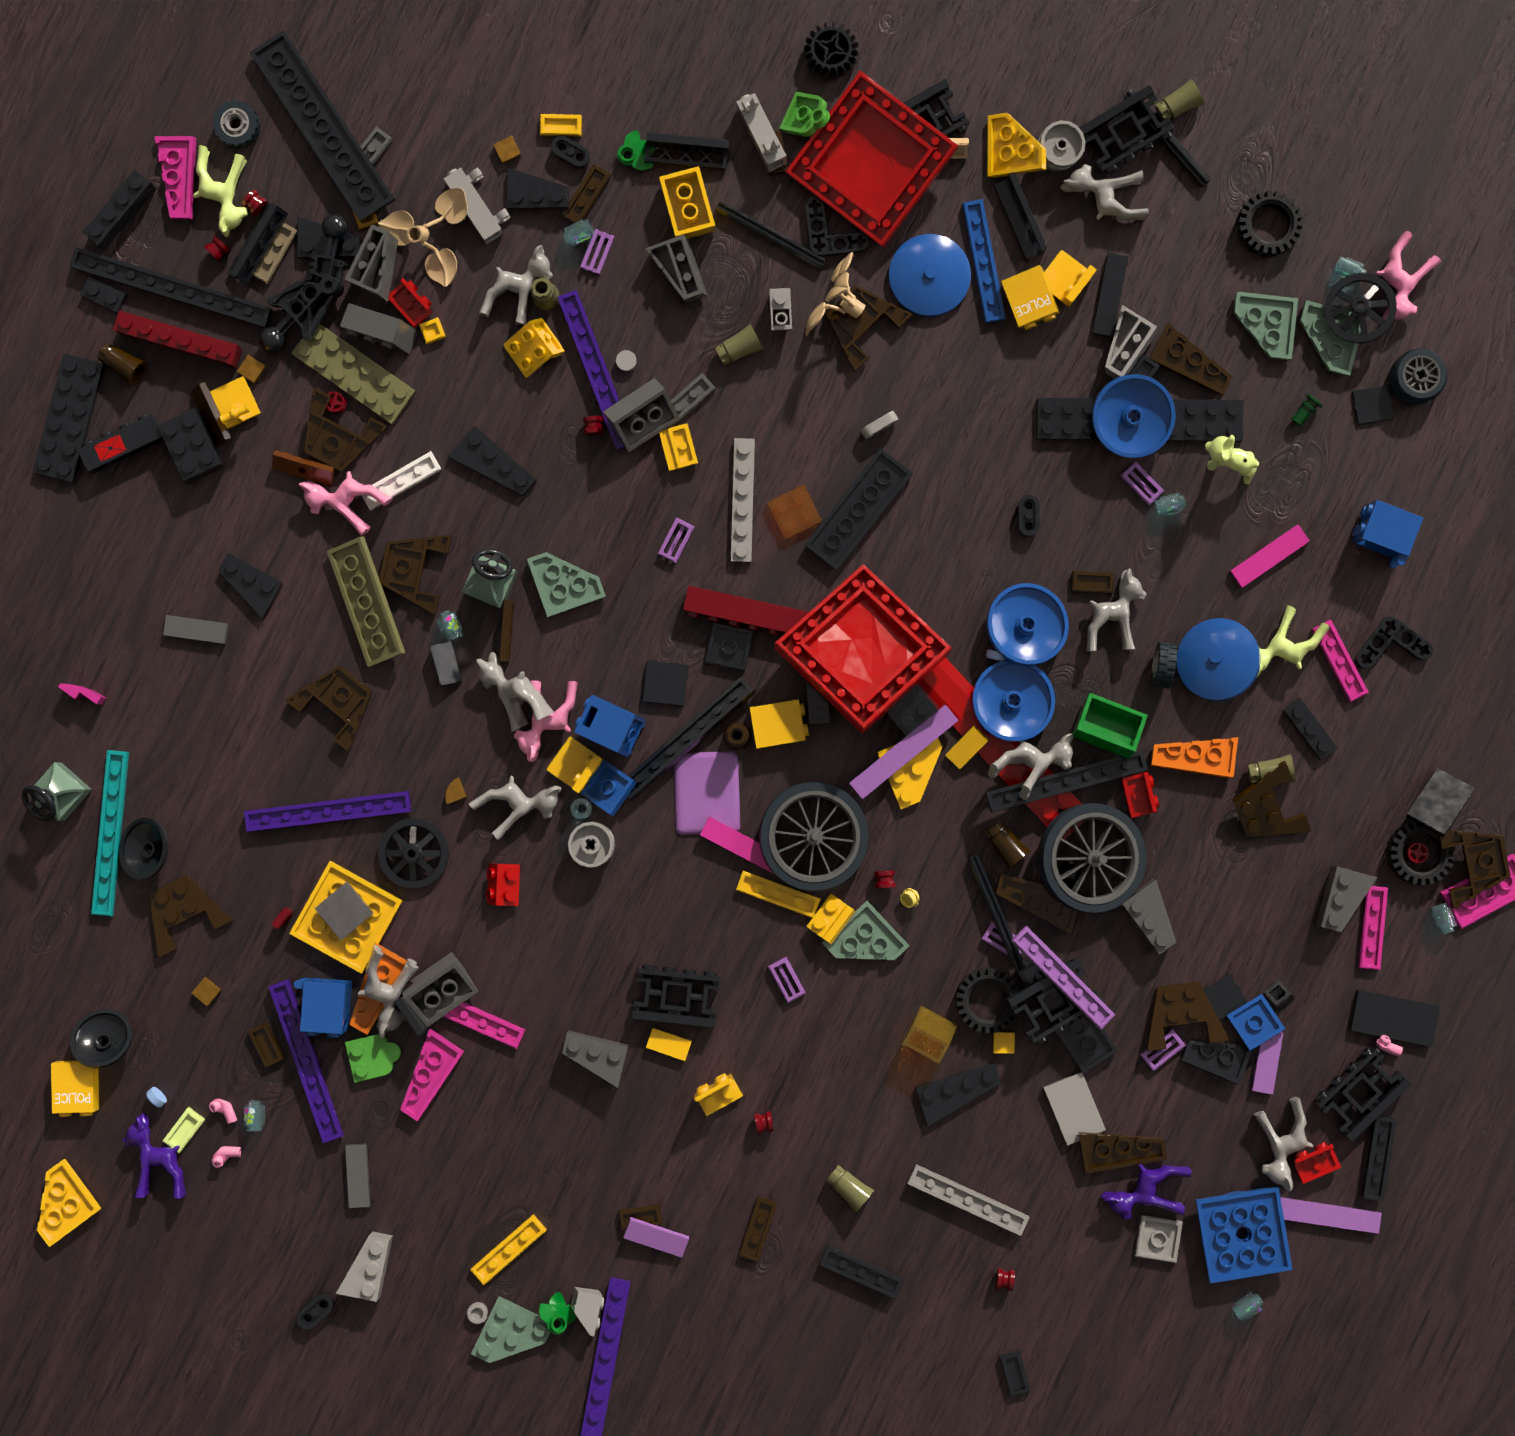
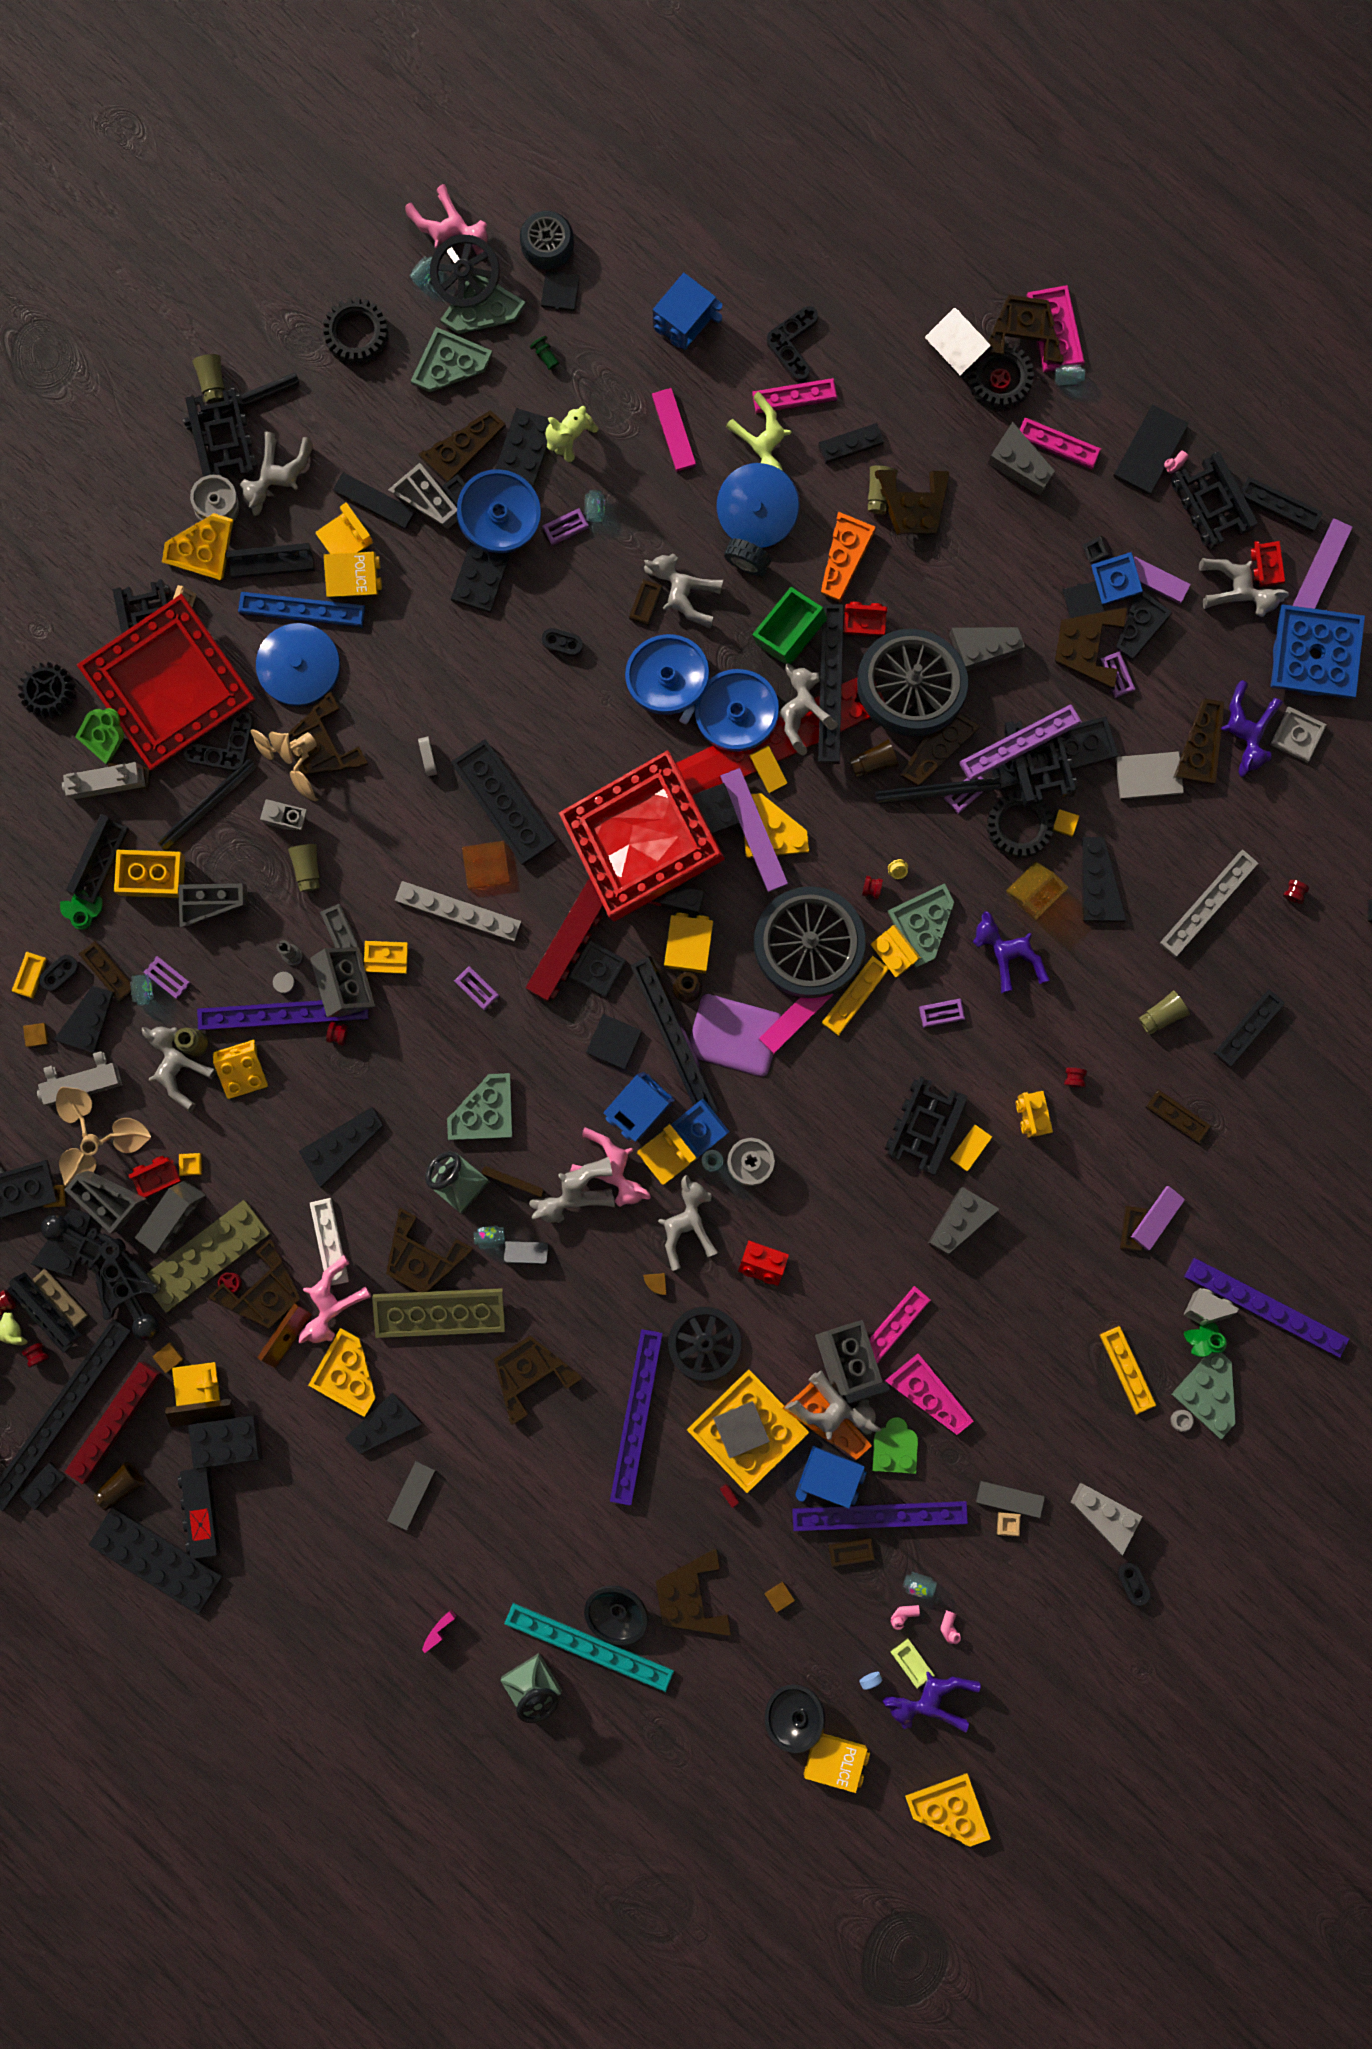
camera: 75 degrees left, 5 degrees down
(285, 534) = (345, 1374): none -> yellow plate
(335, 1180) = (1008, 1524): none -> tan tile
(653, 358) = (290, 953): none -> dark grey pin
(862, 1021) = (988, 933): none -> dark purple animal

